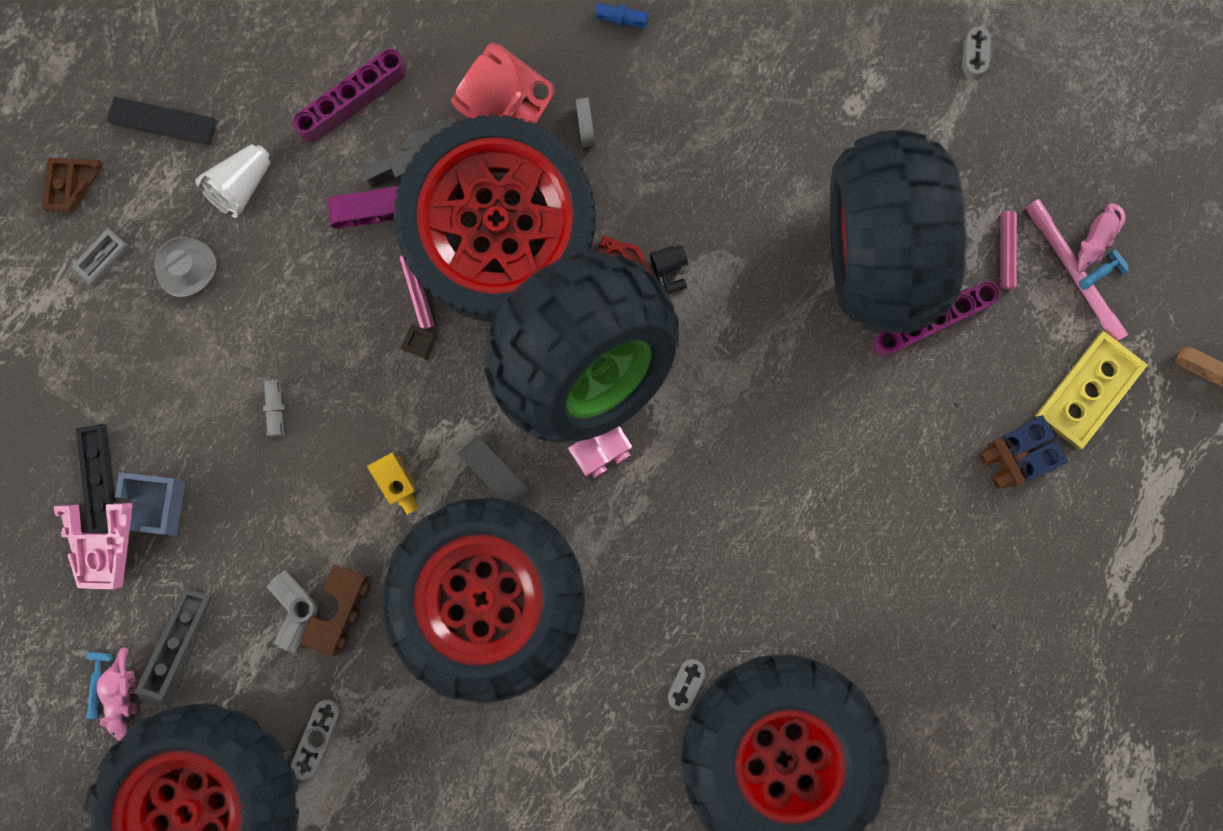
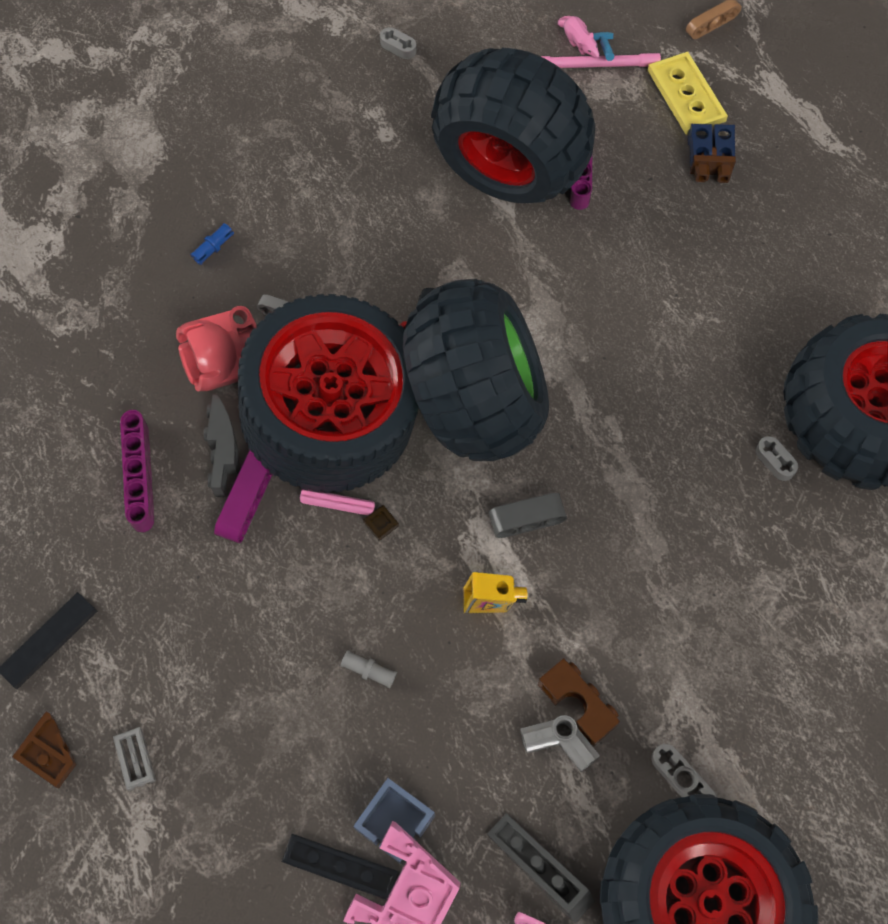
camera: 65 degrees left, 15 degrees down
(184, 266) = (193, 685): light grey hat -> none
(235, 179) = (147, 600): white cone -> none
(448, 651) = (609, 606): black wheel -> none
(598, 452) = (556, 432): bright pink brick -> none

